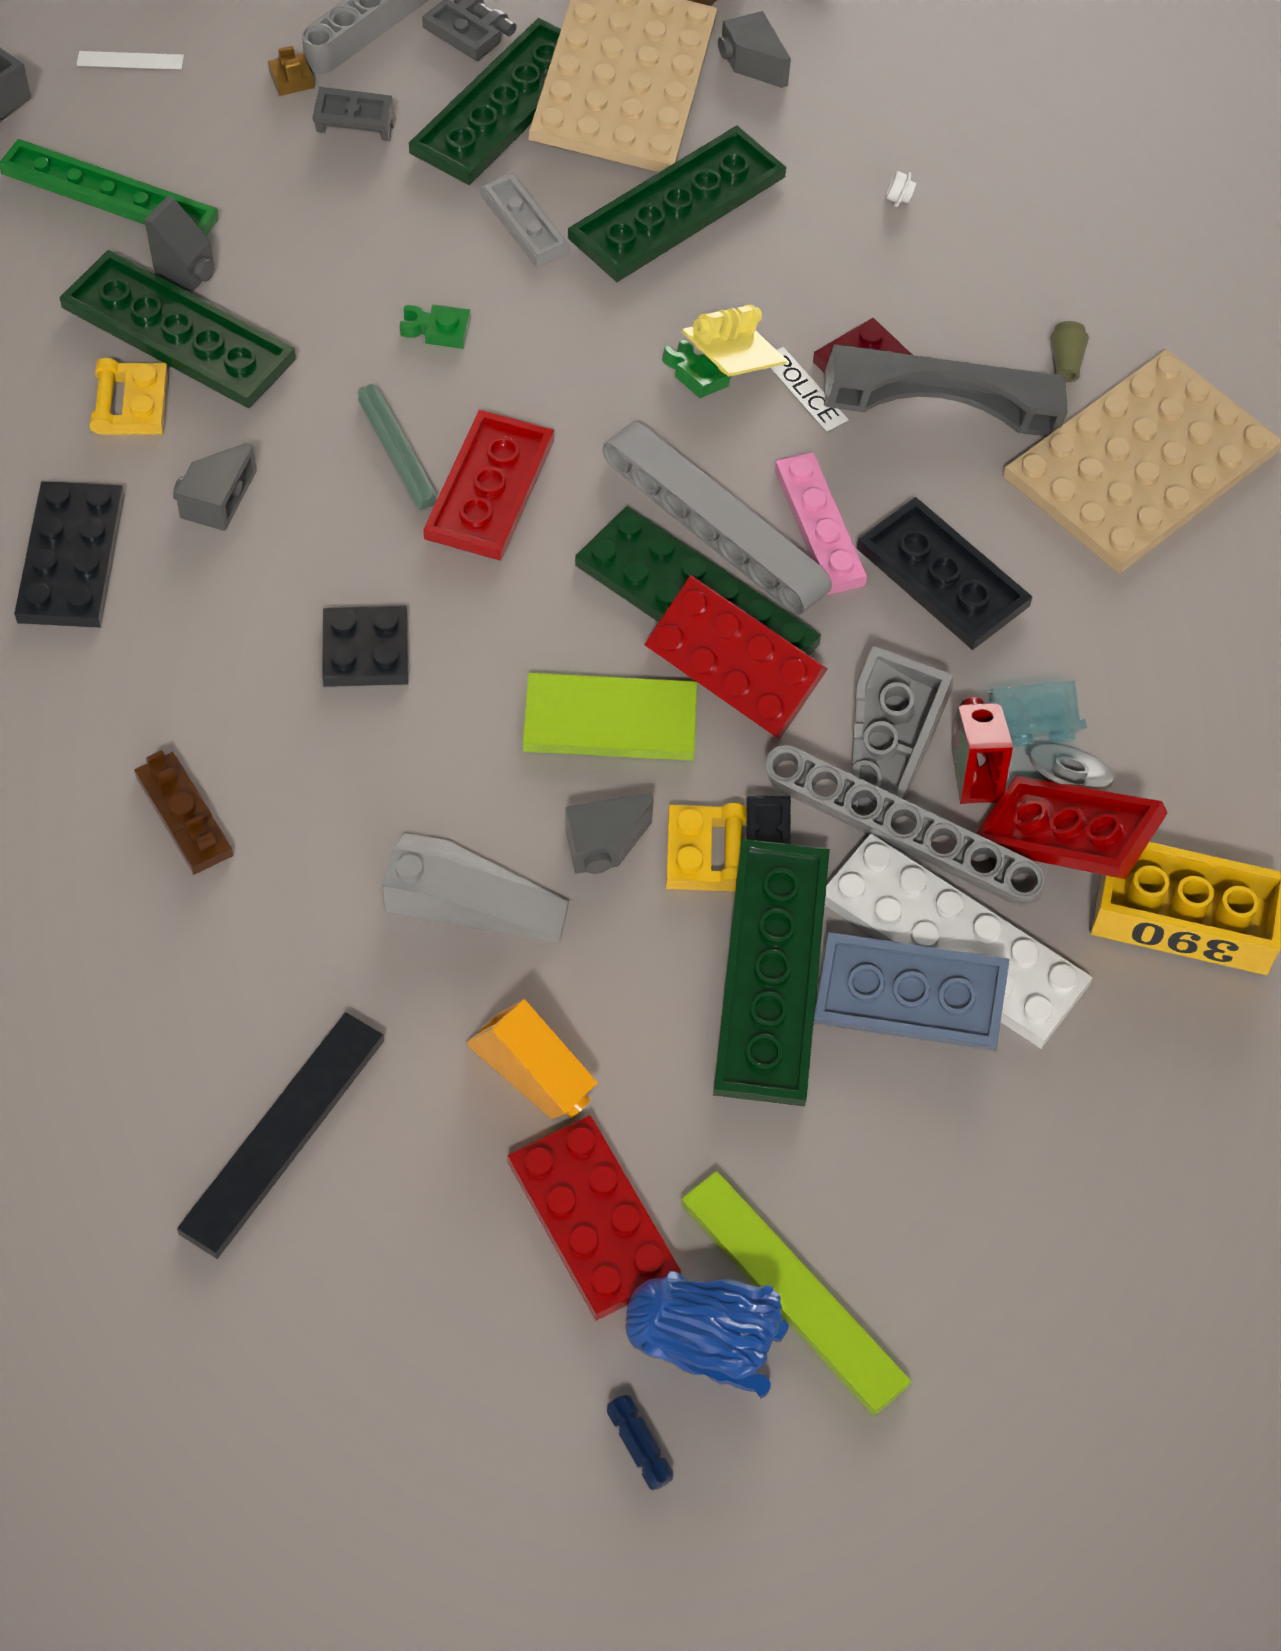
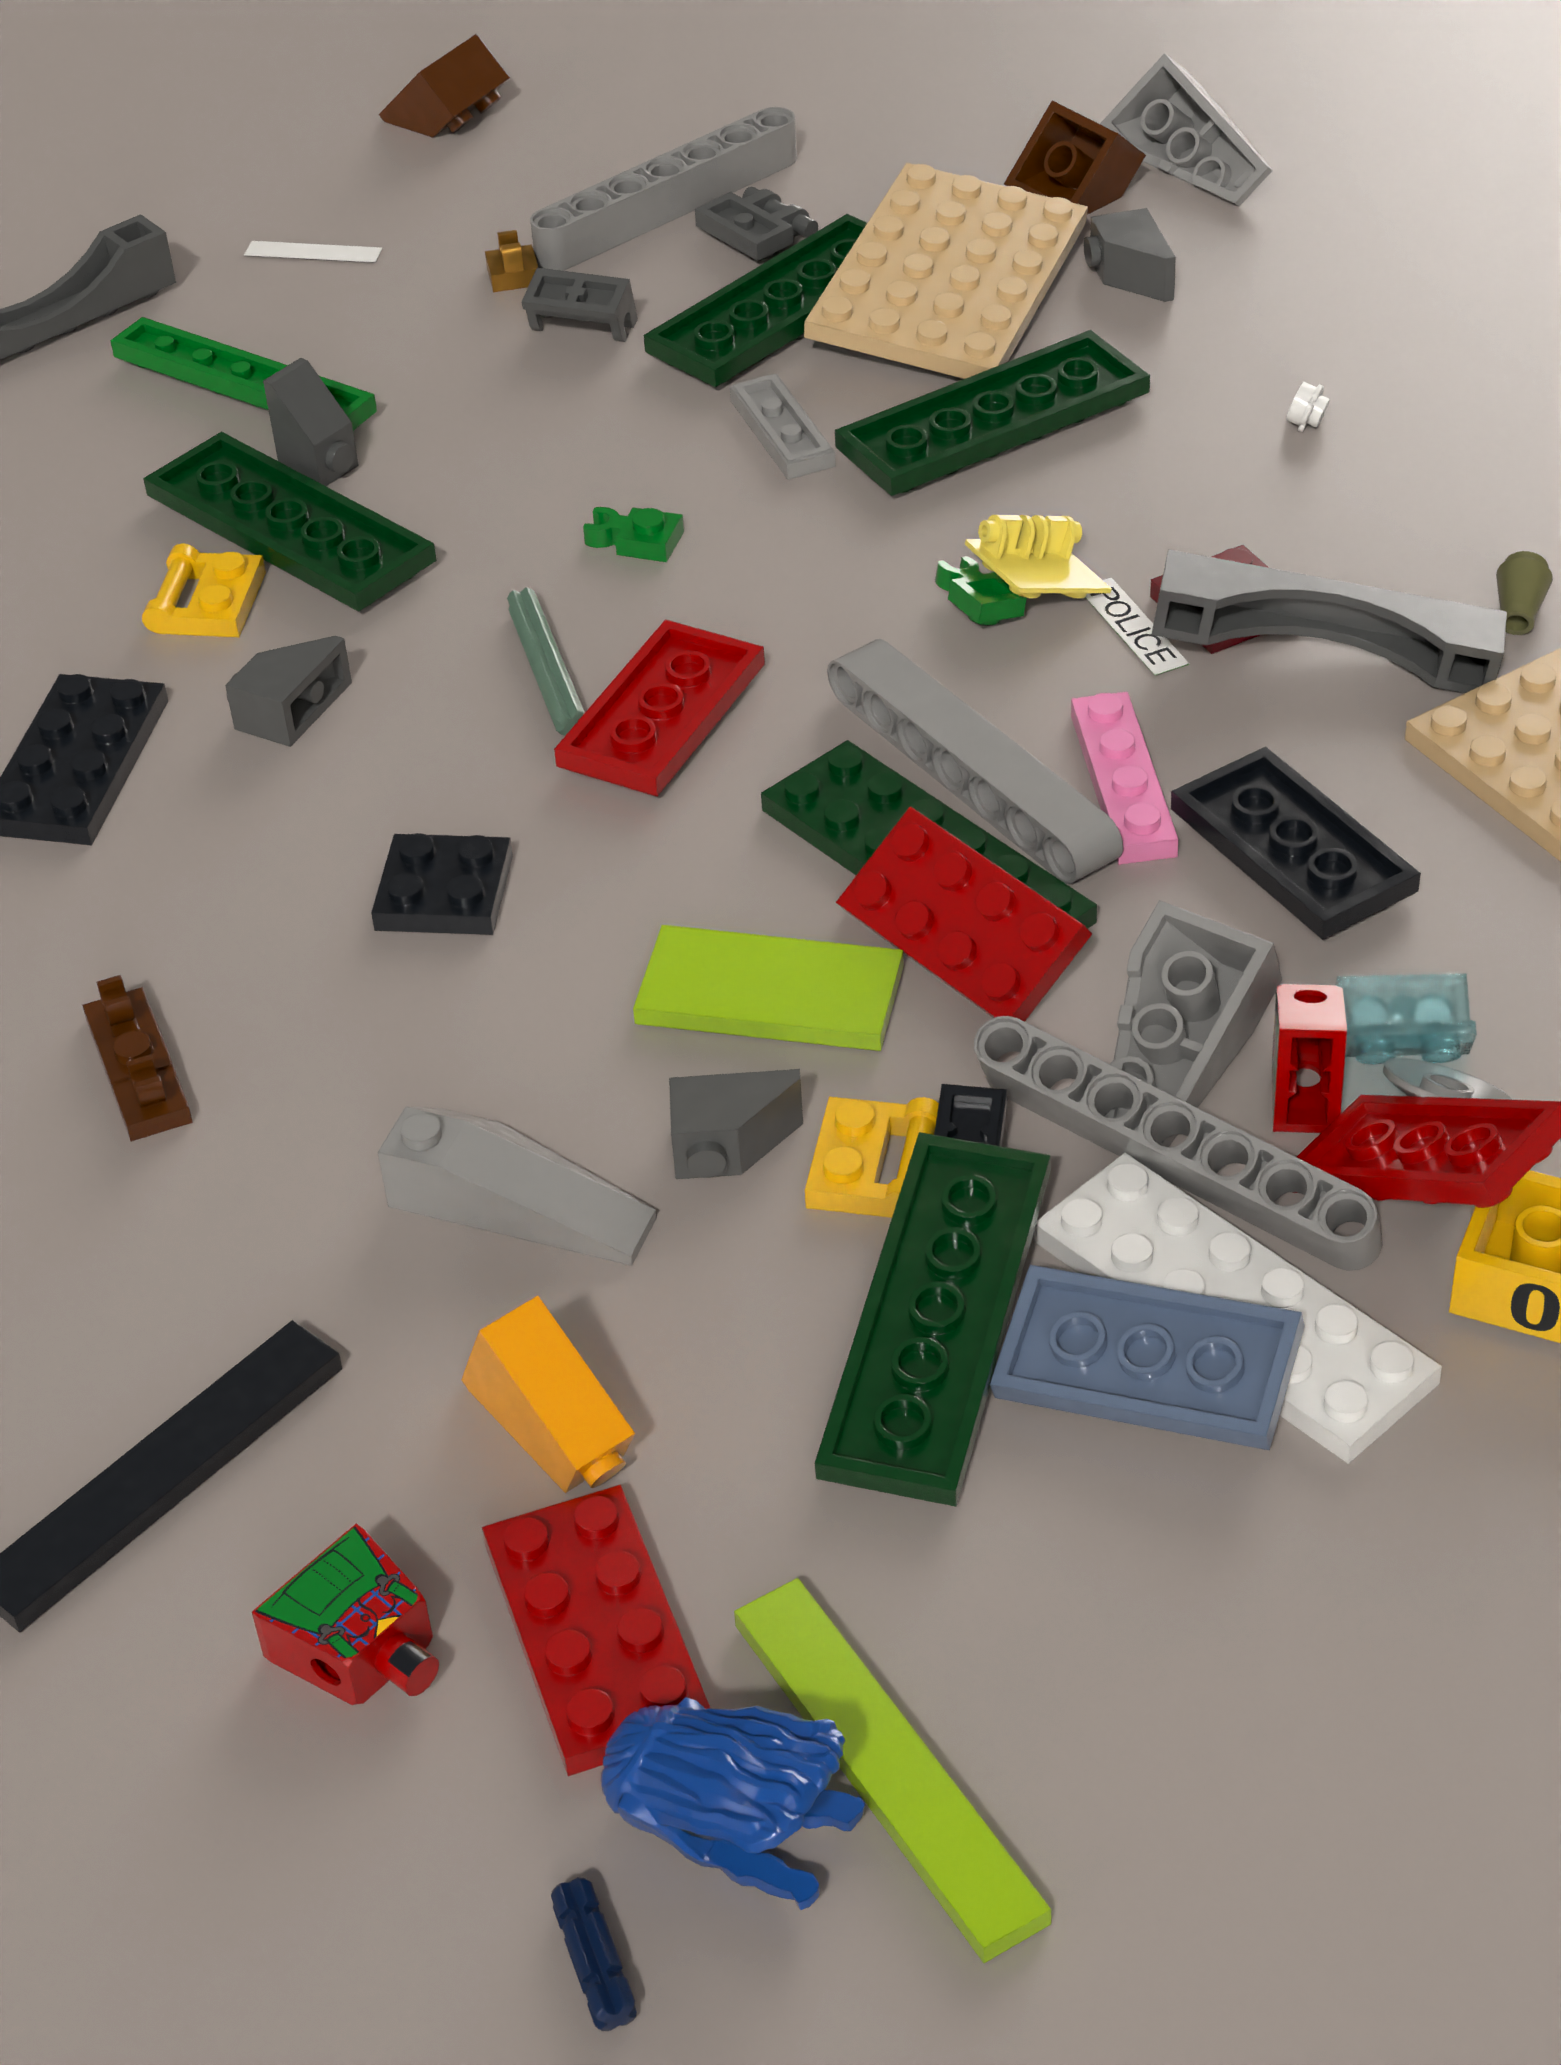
camera: 15 degrees right, 15 degrees down
(440, 1235) = (350, 1623): none -> torso

